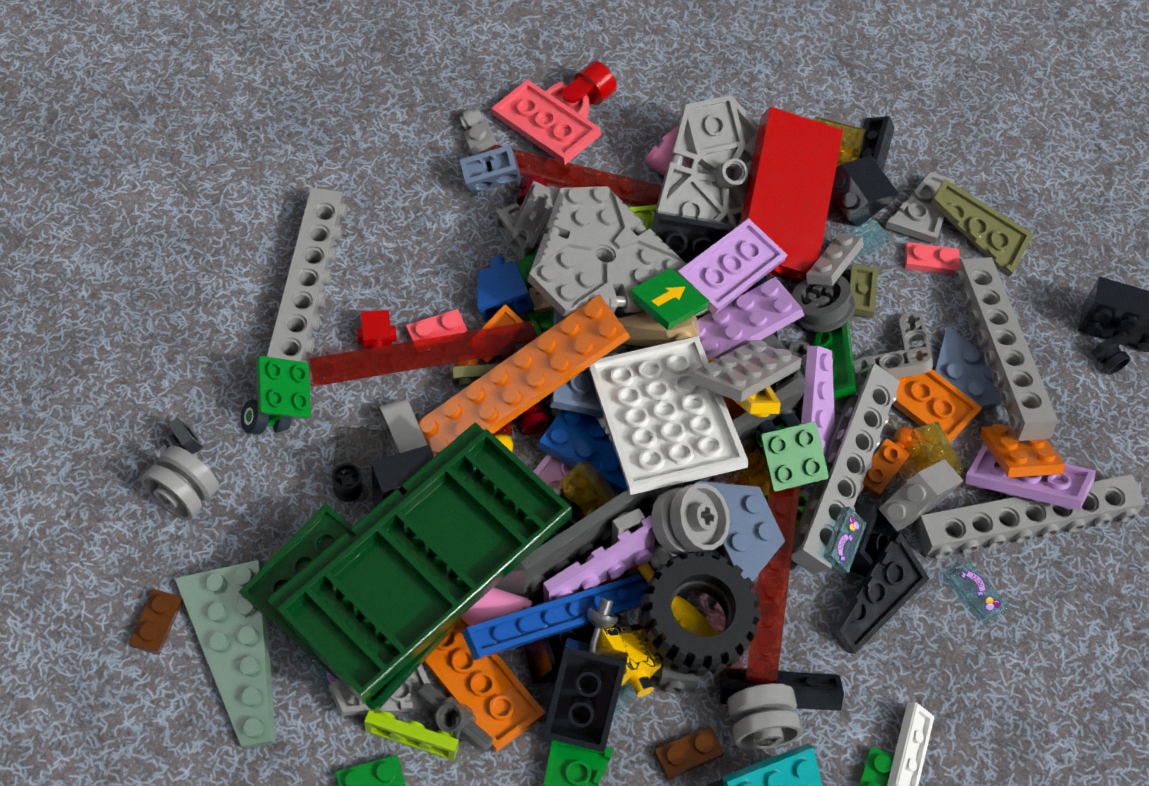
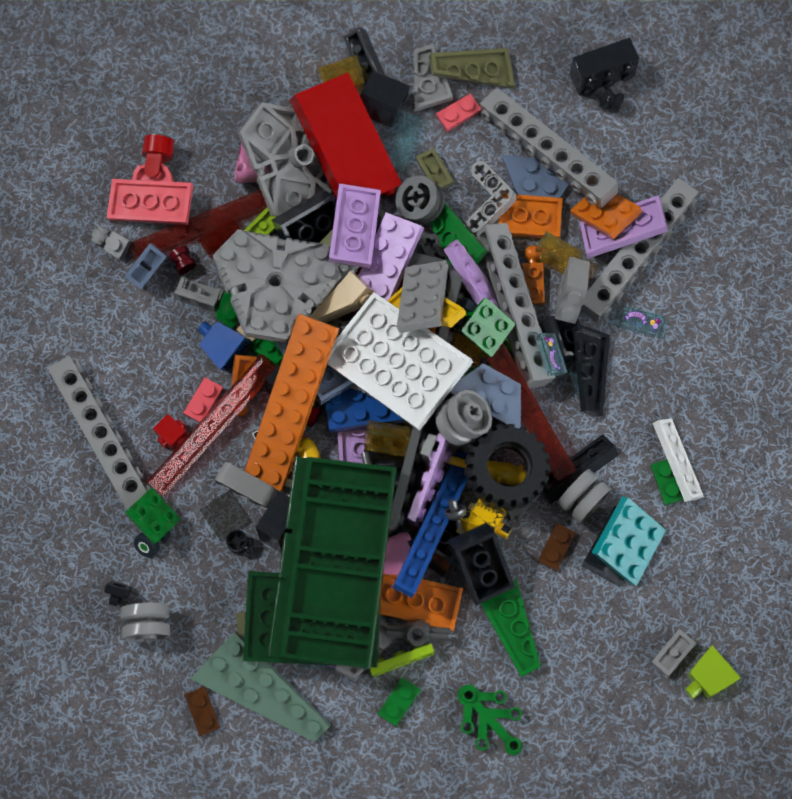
camera: 30 degrees left, 15 degrees up
(468, 374) = (249, 417): olive plate -> none
(534, 213) = (205, 280): light grey hinge -> none
(669, 298) = (339, 281): green tile -> none
(835, 259) = (406, 165): light grey plate -> none

